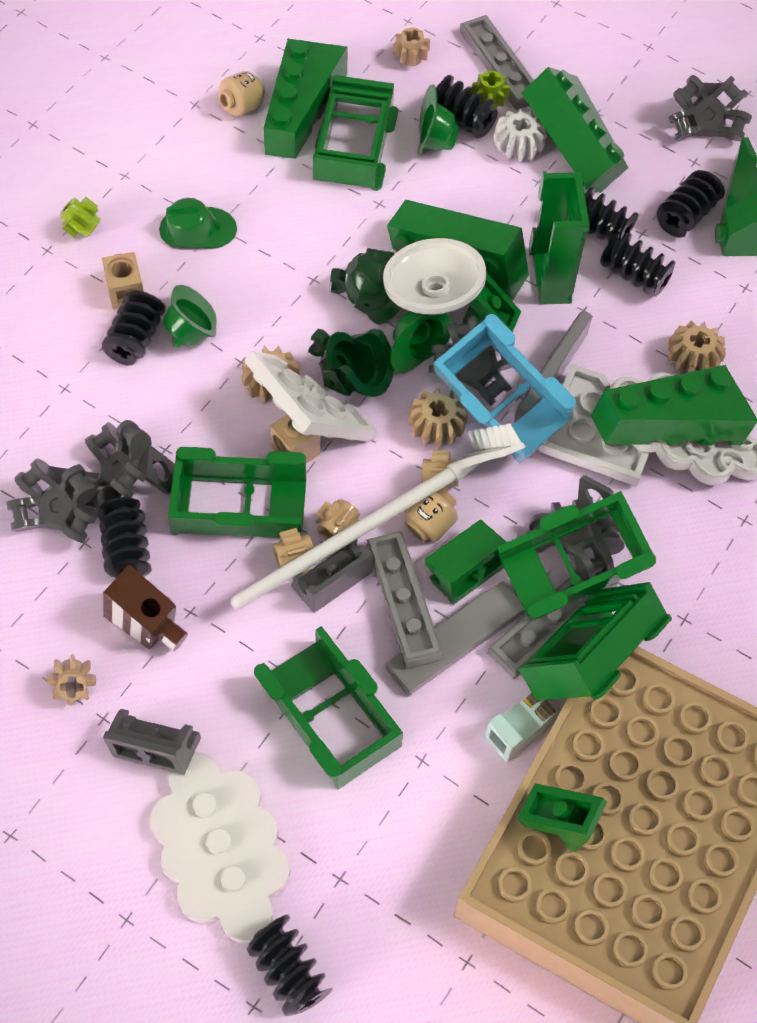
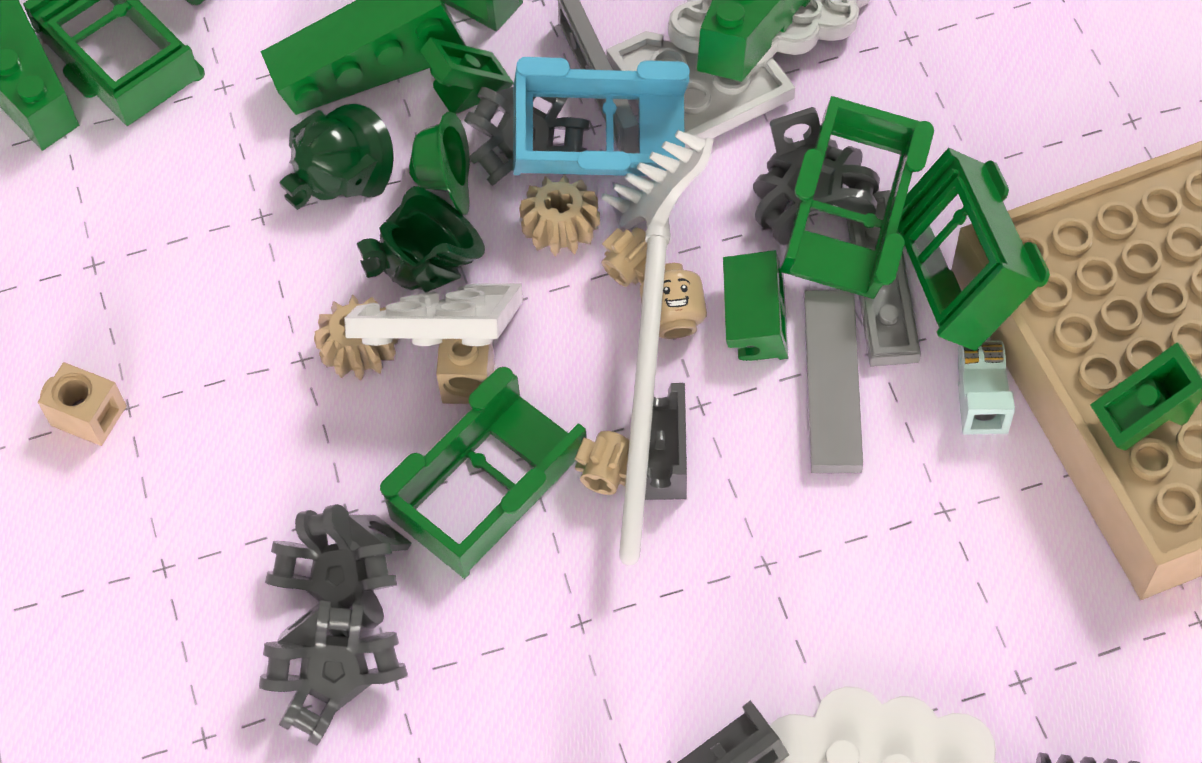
camera: 45 degrees left, 0 degrees up
(123, 536) = (439, 629): black piece -> none
(133, 327) = (160, 434): black piece -> none
(142, 610) = (555, 664): reddish brown torso -> none
(189, 317) = (205, 371): green piece -> none
(194, 225) = (74, 283): green piece -> none
(308, 670) = (753, 543): green piece -> none
(335, 517) = (605, 394): tan gear -> none
(404, 600) = (754, 396): light grey tile -> none
(434, 276) = (403, 85): white dish -> none

